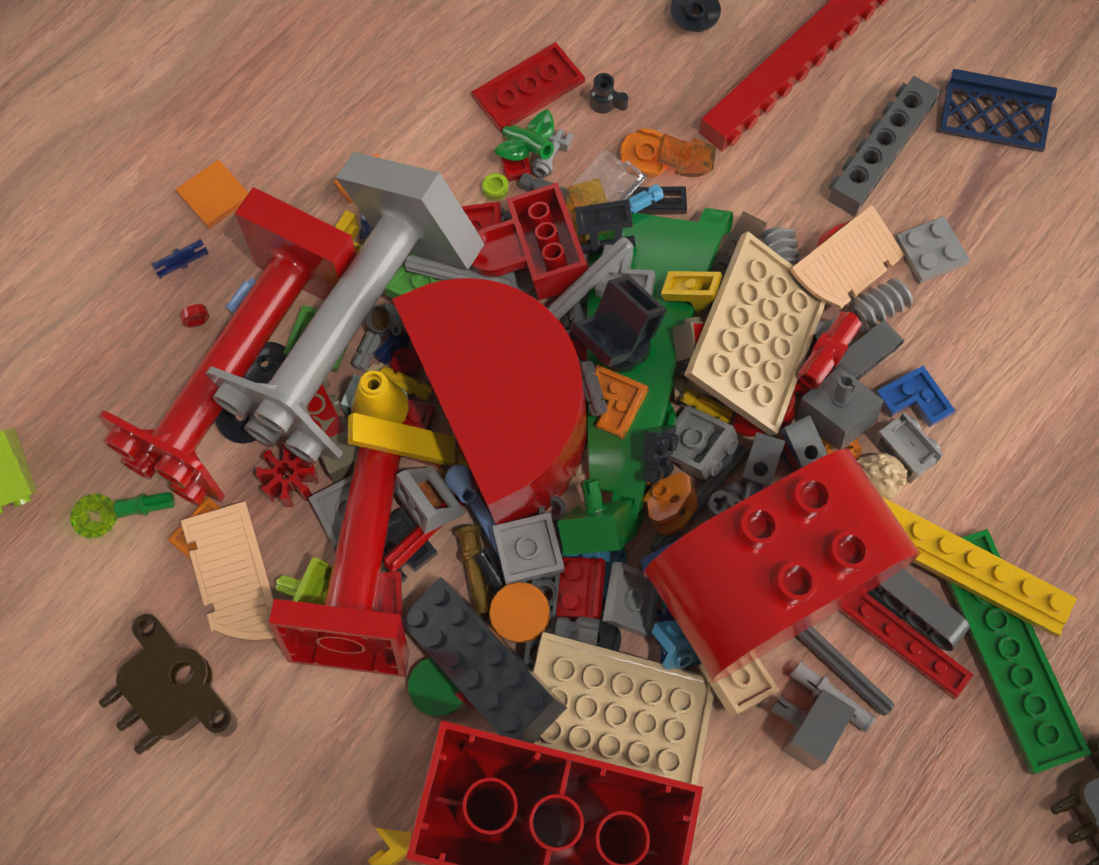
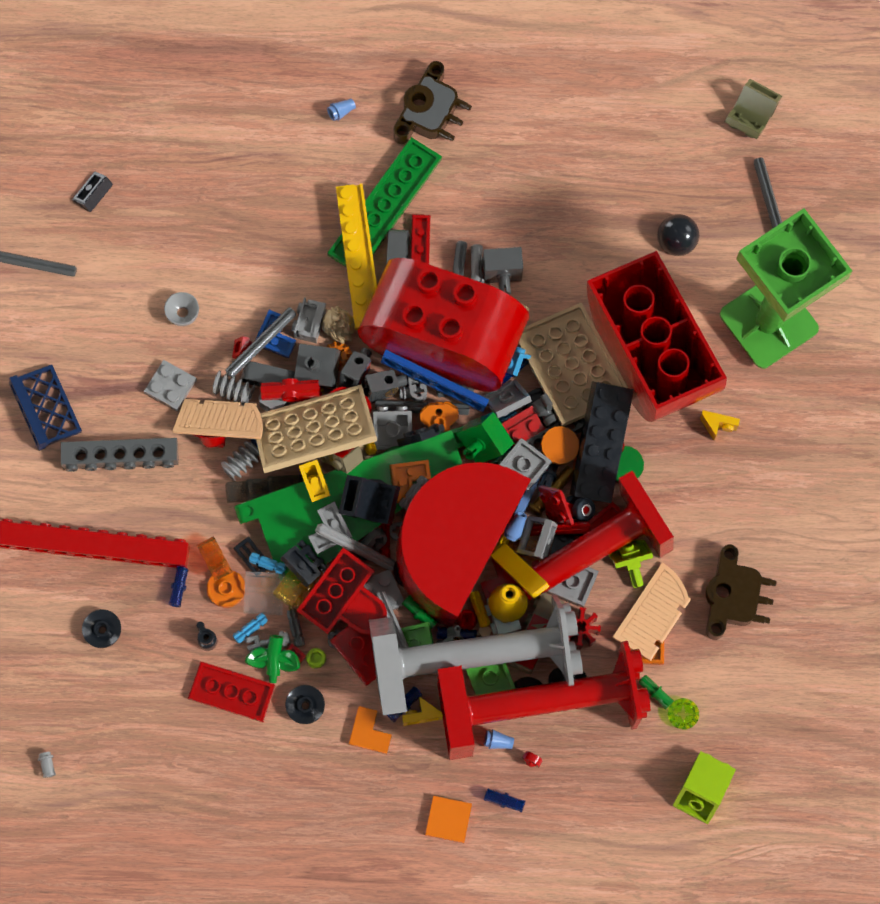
camera: 130 degrees left, 5 degrees up
(421, 575) = (565, 510): none -> red plate
(453, 129) = (301, 695): none -> black dish
(581, 135) = (250, 628): none -> dark azure axle
(682, 106) = (178, 586): none -> clear blue pin
(917, 367) = (244, 358): none -> dark grey axle
(929, 351) = (240, 346): none -> red tile
(1028, 307) = (178, 301): none -> light grey piece

